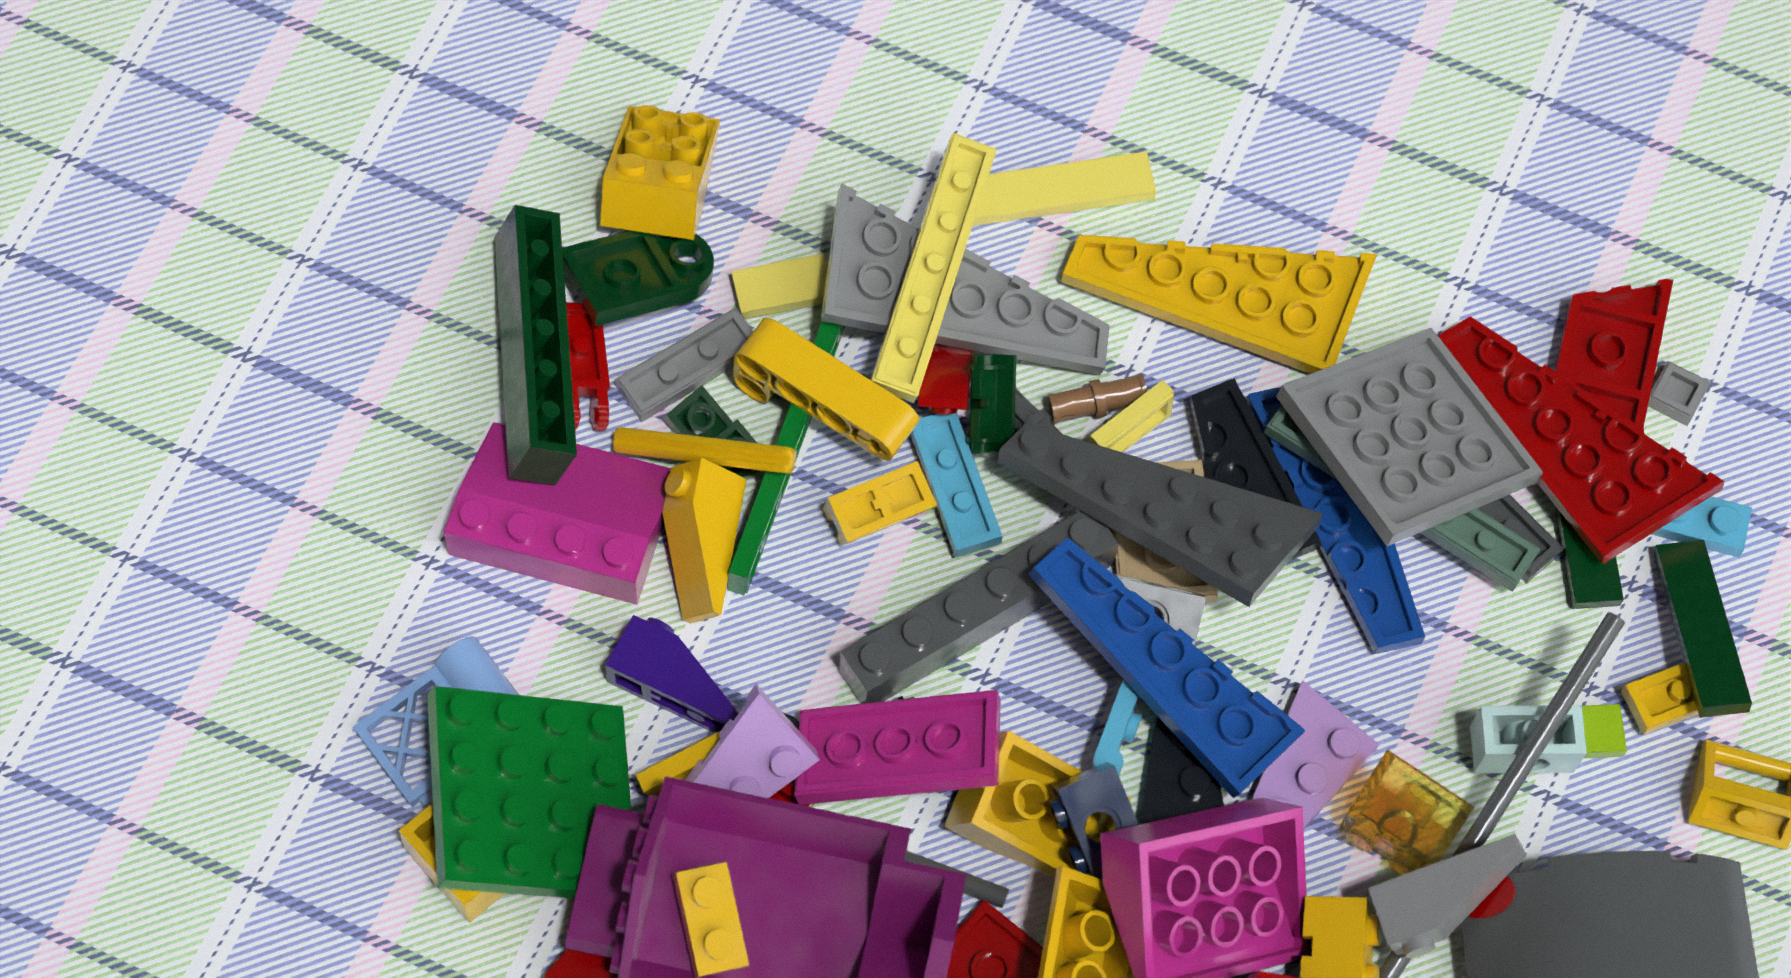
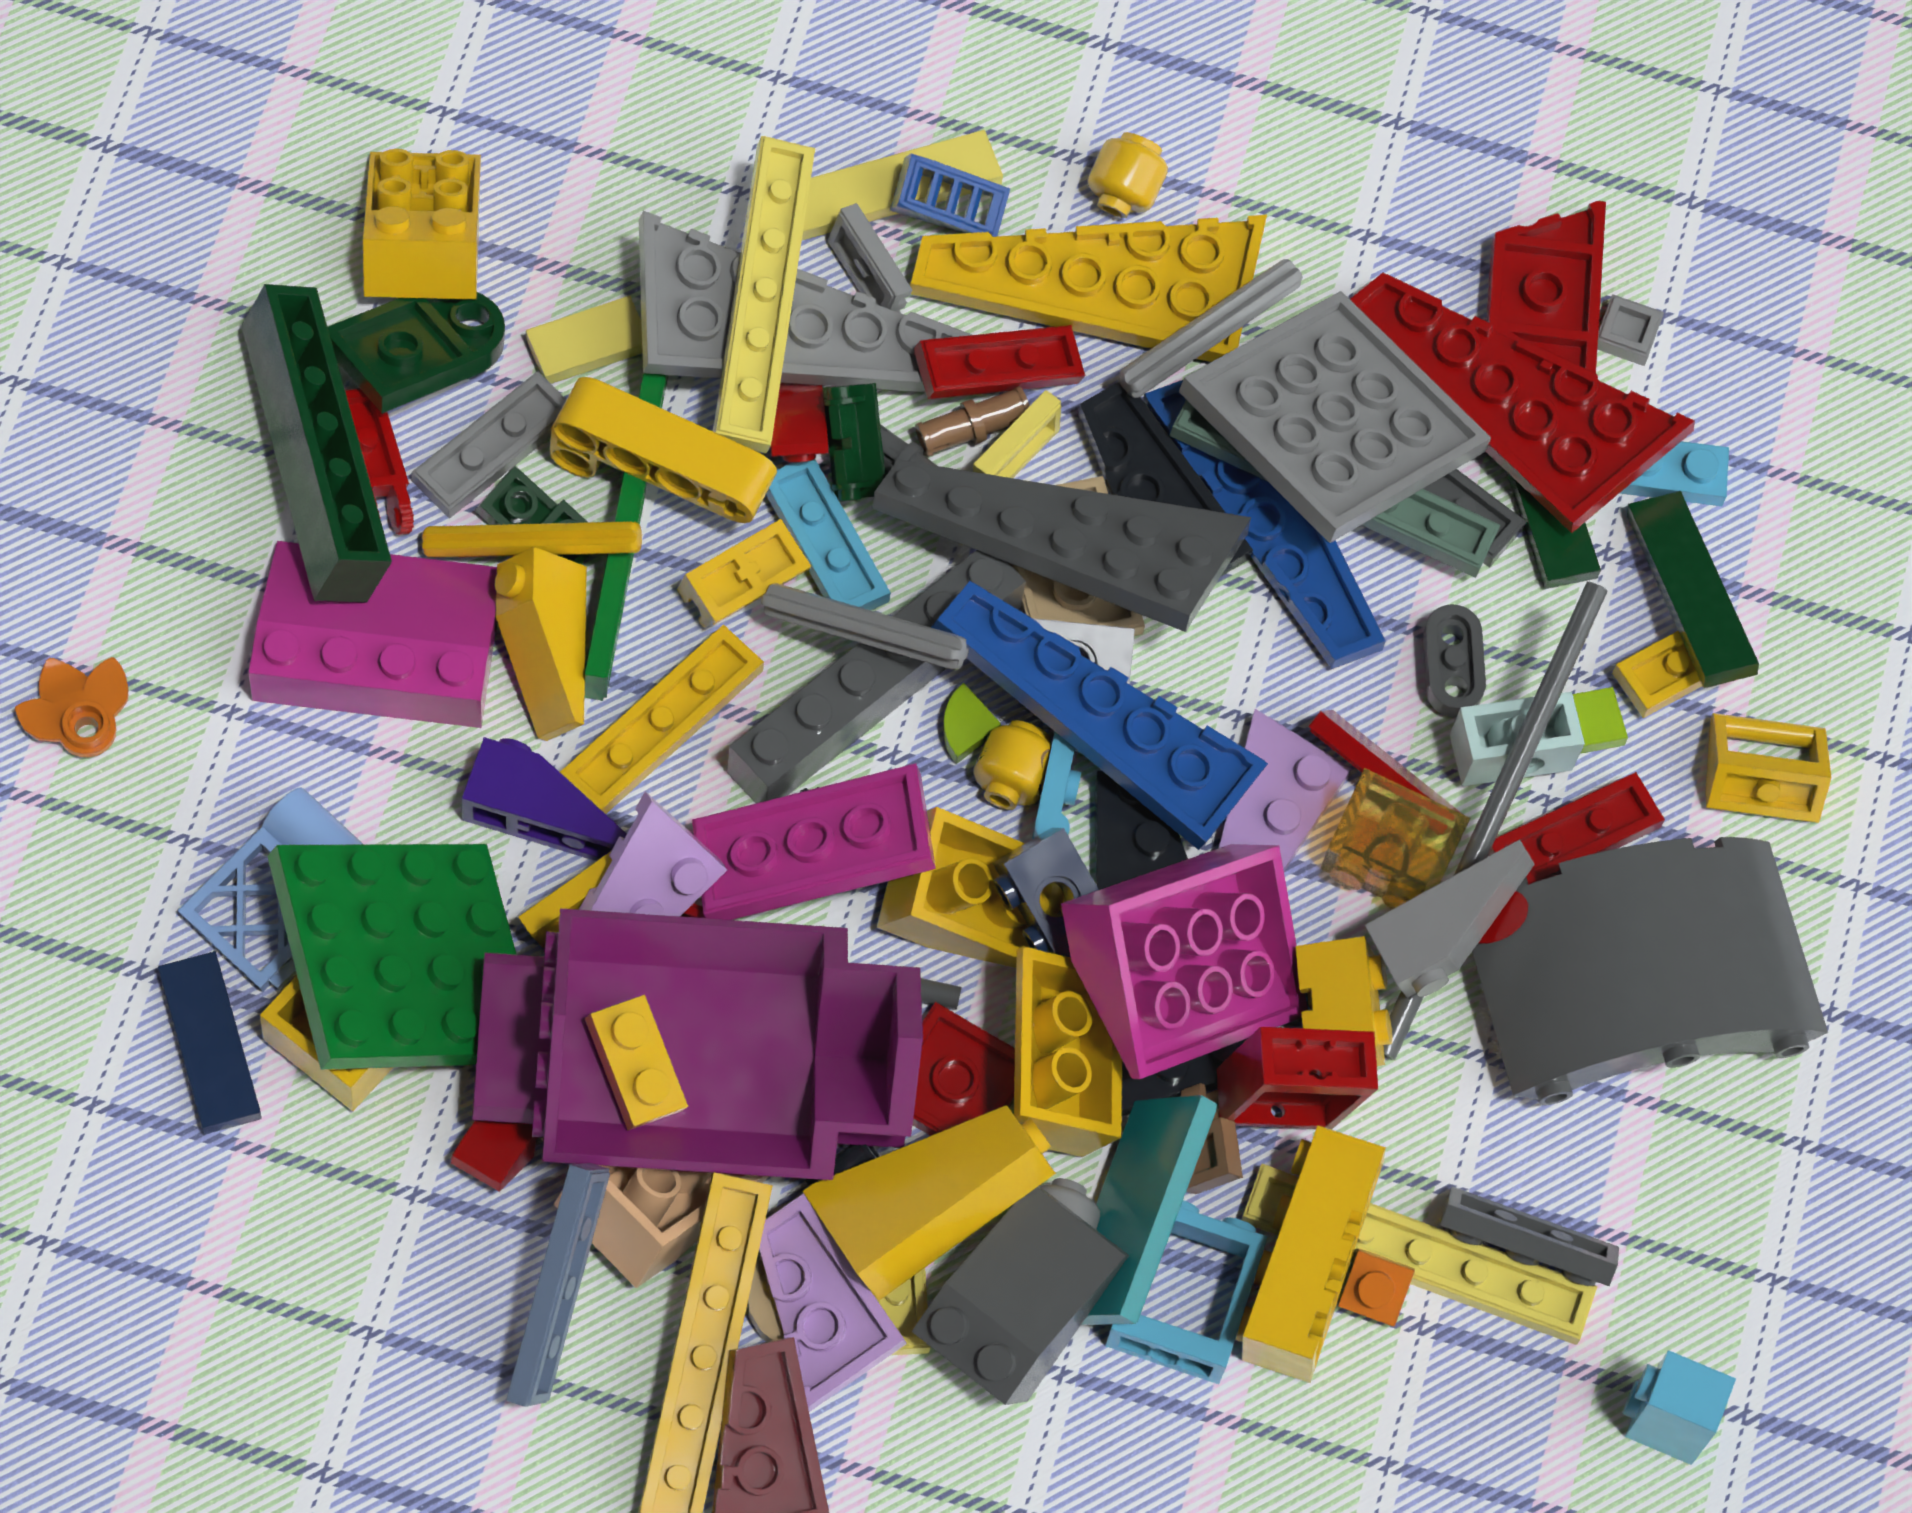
camera: 15 degrees left, 0 degrees up
(300, 535) = (74, 700): none -> orange plate
(359, 845) = (209, 1042): none -> dark blue tile
(790, 620) = (664, 719): none -> yellow plate
(973, 564) = (865, 626): none -> light grey axle
(1029, 249) = (868, 259): none -> light grey tile
(1051, 658) = (966, 723): none -> lime tile
(1074, 187) = (907, 188): none -> blue slope
(1084, 700) = (1013, 764): none -> yellow head
(1127, 350) = (999, 362): none -> red tile
(1262, 205) = (1127, 175): none -> yellow head
(1312, 345) = (1210, 328): none -> light grey axle
(1399, 740) = (1366, 754): none -> red tile
(1481, 664) = (1454, 664): none -> dark grey plate
(1576, 826) = (1586, 826): none -> red plate

